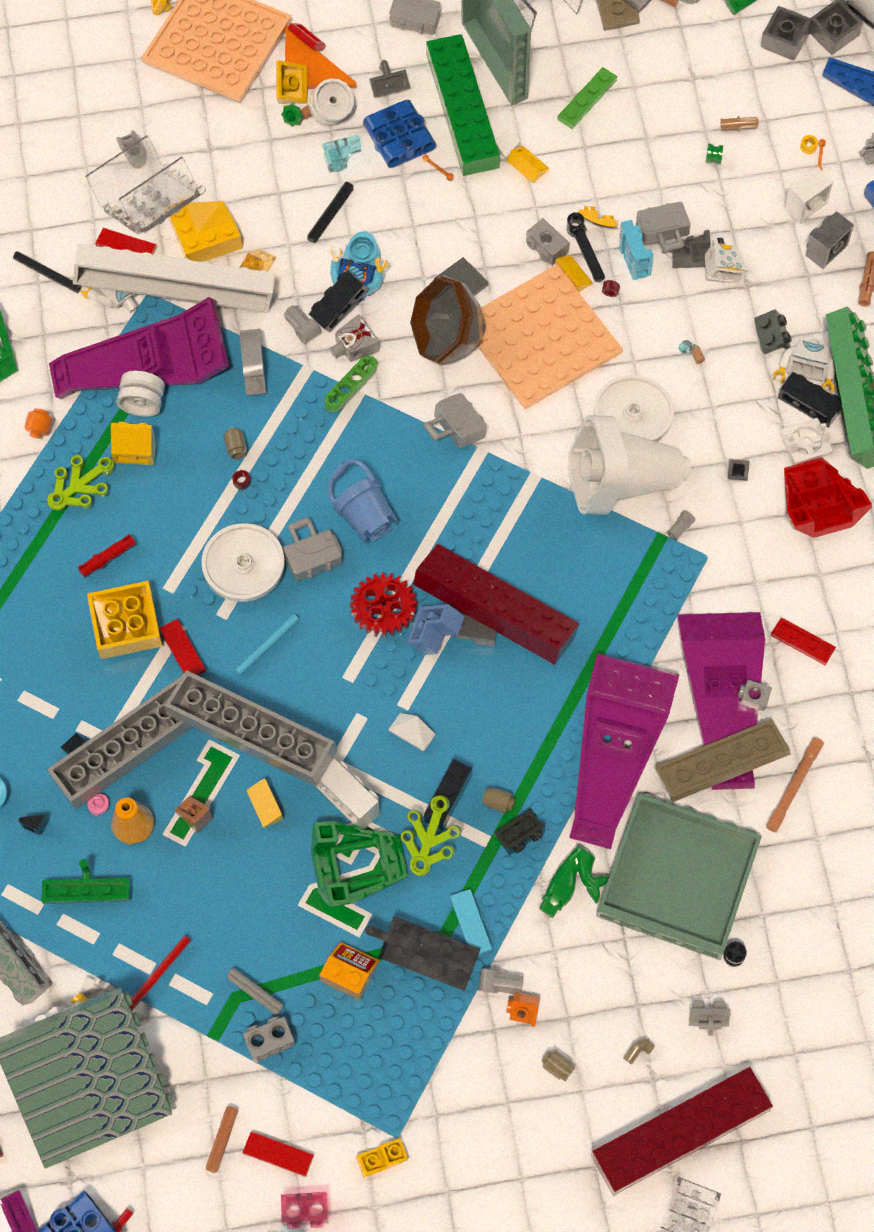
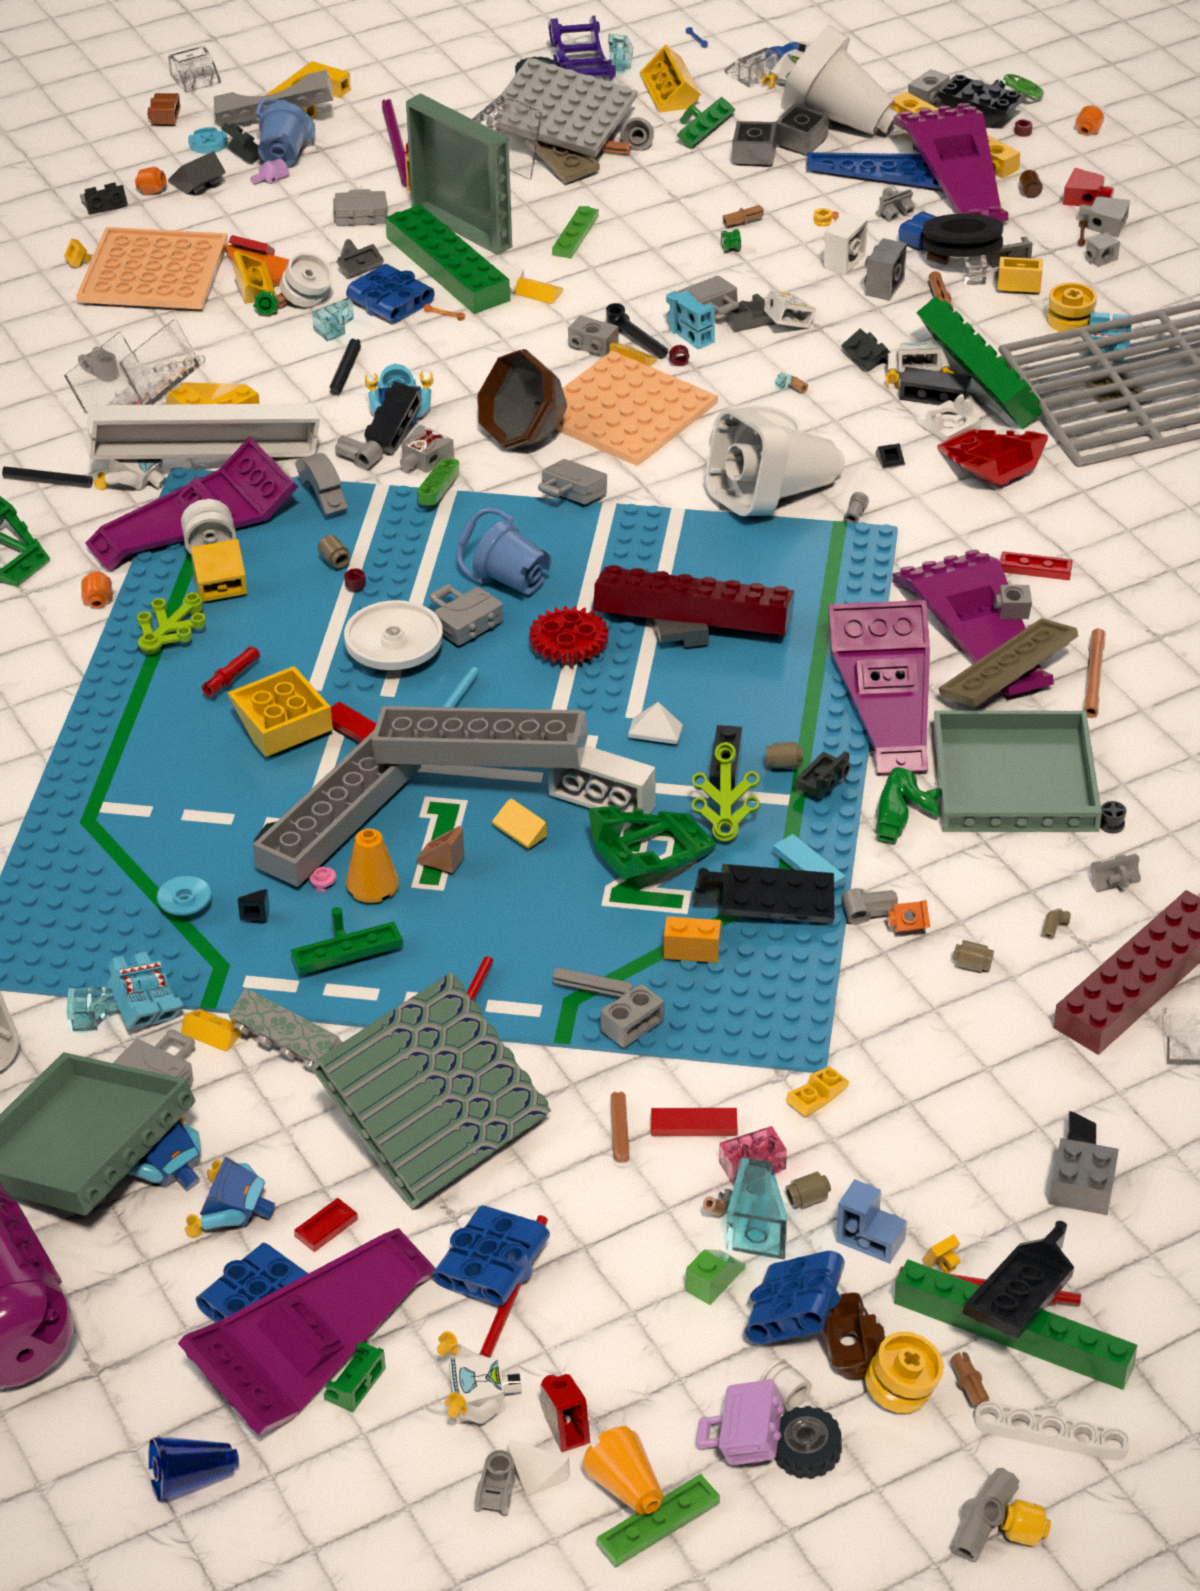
camera: 20 degrees left, 25 degrees down
(432, 625) = (635, 629): medium blue brick -> none
(594, 215) = (645, 309): yellow slope -> none

